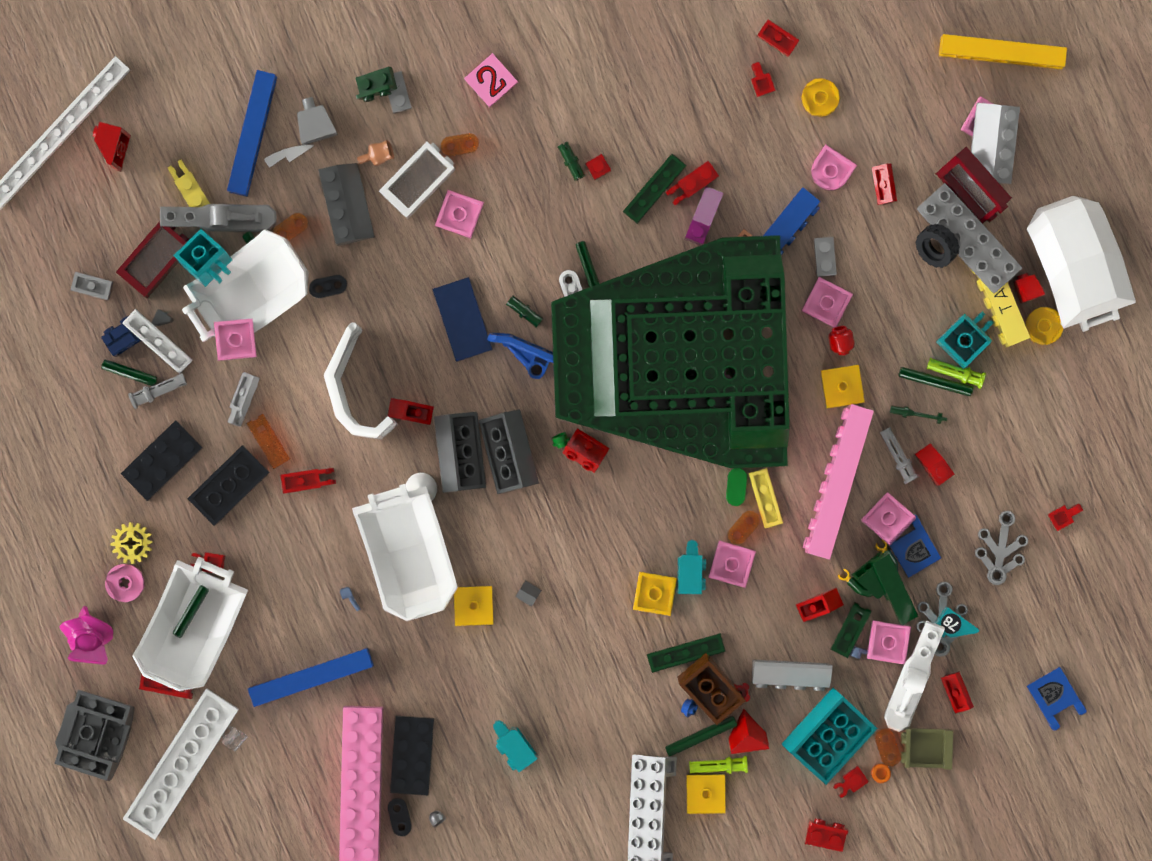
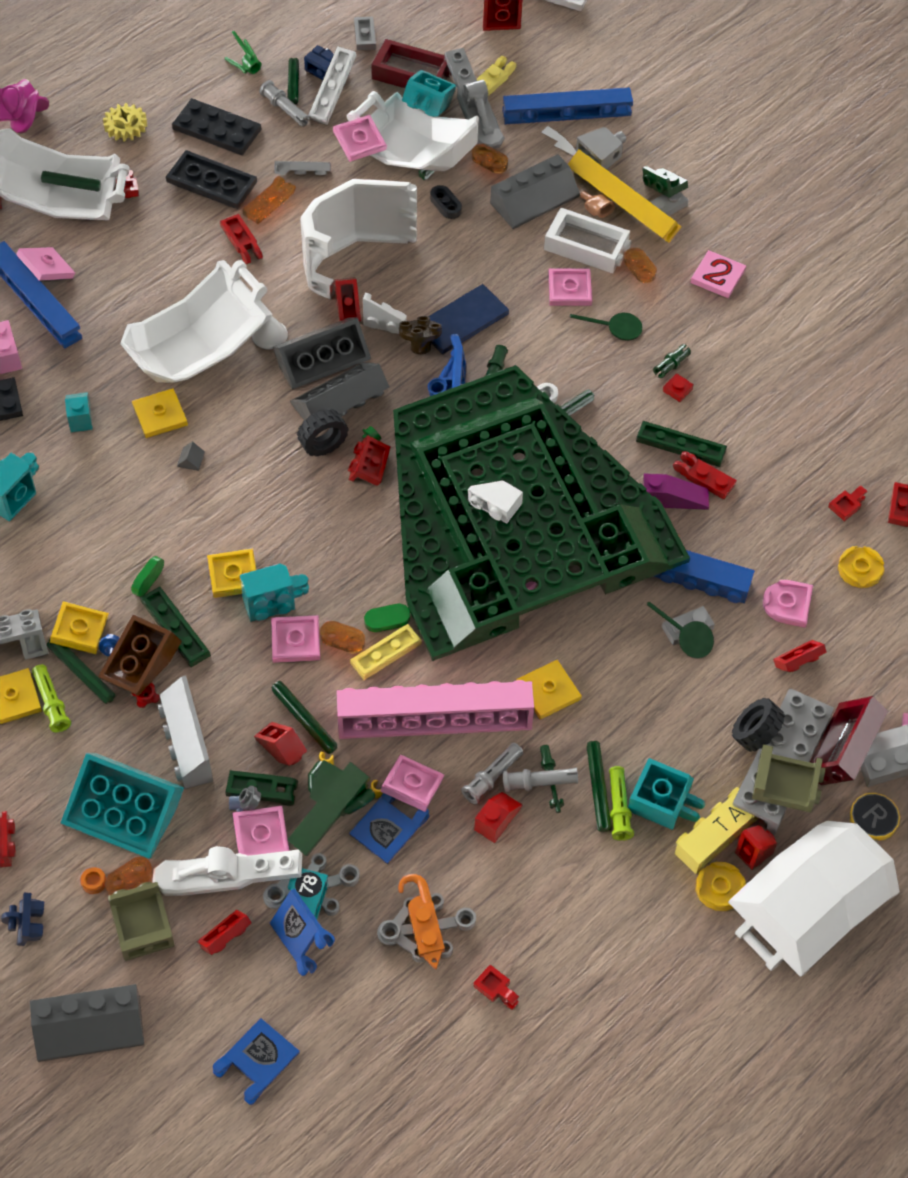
camera: 65 degrees right, 30 degrees down
(93, 405) = (250, 61): none -> green plant
(122, 593) = (85, 137): bright pink plate -> none
(161, 318) = (356, 87): dark grey slope -> none
(282, 658) = (45, 263): none -> bright pink plate
(347, 593) = (134, 303): sand blue hand -> none
(380, 128) = (624, 196): none -> yellow piece
(447, 671) = (78, 412): none -> teal slope
(450, 381) = (381, 316): none -> white wing
(473, 363) = (420, 333): none -> dark brown plate
(517, 185) = (621, 325): none -> dark green piece
(552, 481) = (316, 424): none -> black tyre
(635, 661) = (147, 576): none -> green tile
(665, 727) = (79, 627): none -> yellow plate
(691, 371) = (496, 498): none -> white slope
(747, 735) = (96, 718): red slope -> none
(801, 579) = (304, 717): none -> dark green axle
(827, 302) = (637, 644): bright pink tile -> none
(841, 258) = (694, 637): none -> dark green piece
(841, 340) = (601, 667): red head -> none
(853, 780) = (73, 852): red plate -> none
(863, 643) = (249, 798): none -> dark grey plate
(905, 831) = (26, 930): none -> dark blue hips
(915, 433) = (529, 779): none -> light grey pin
(981, 639) = (298, 930): none -> blue flag
(990, 806) = (87, 1022): none -> dark grey slope
(997, 247) = (787, 781): none -> olive panel
(998, 548) = (424, 921): none -> orange plate
(1031, 189) = (875, 815): none -> black tile

